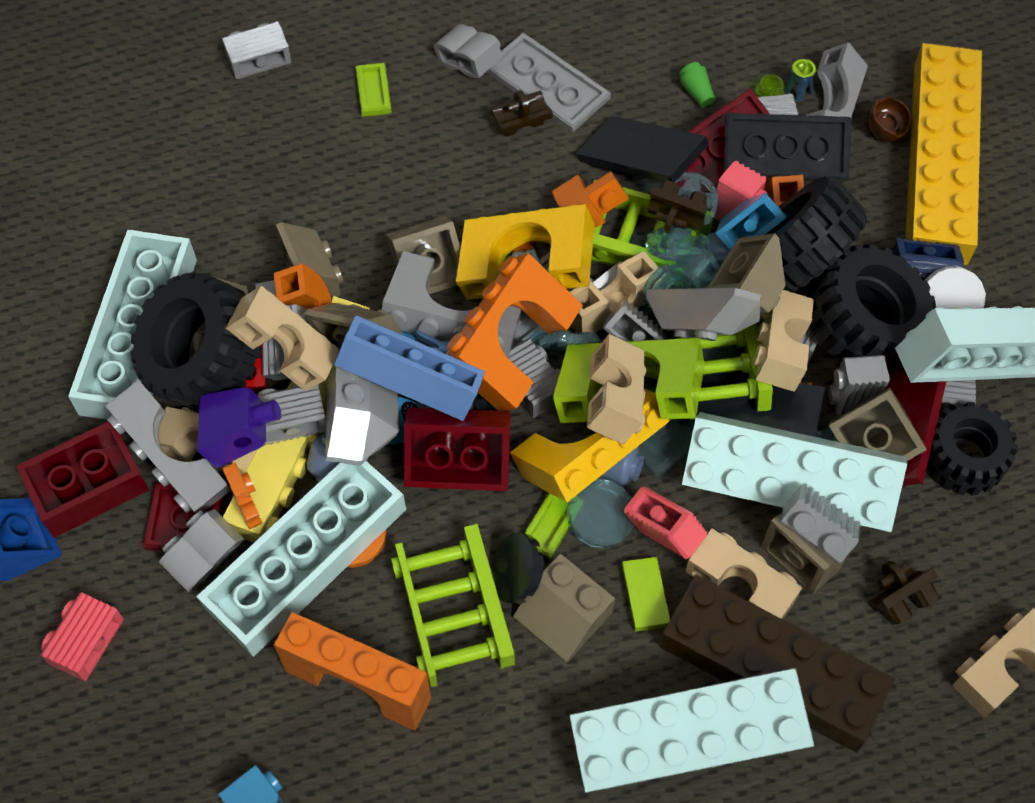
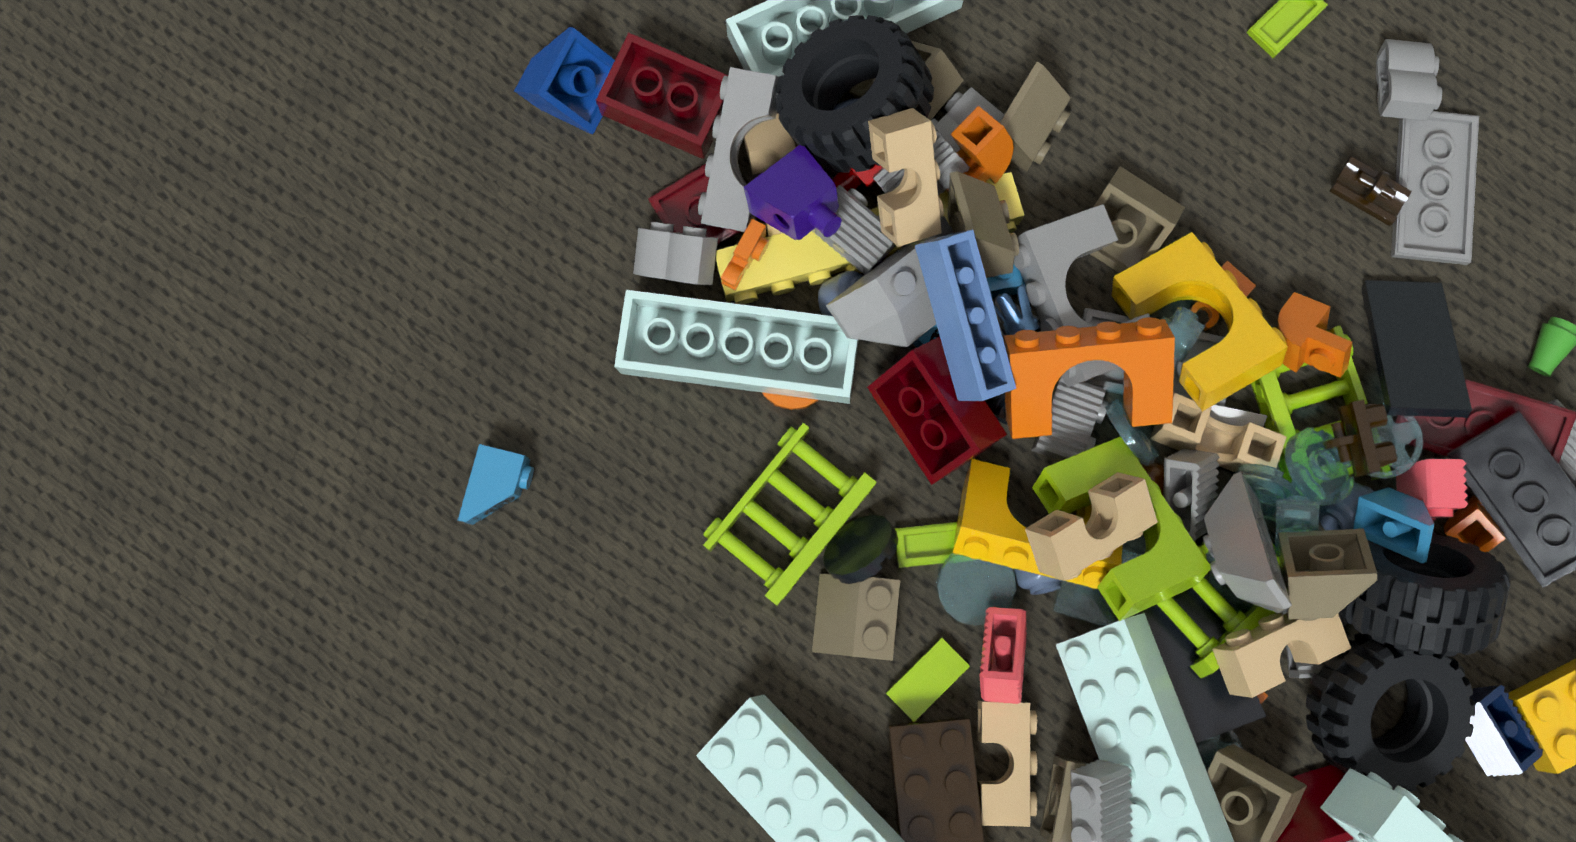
camera: 55 degrees right, 20 degrees up
(81, 636) = (531, 215): coral brick -> none
(313, 649) = (656, 476): orange arch -> none
(857, 381) = (1294, 748): light grey brick -> none
(956, 288) = (1478, 785): white tile -> none

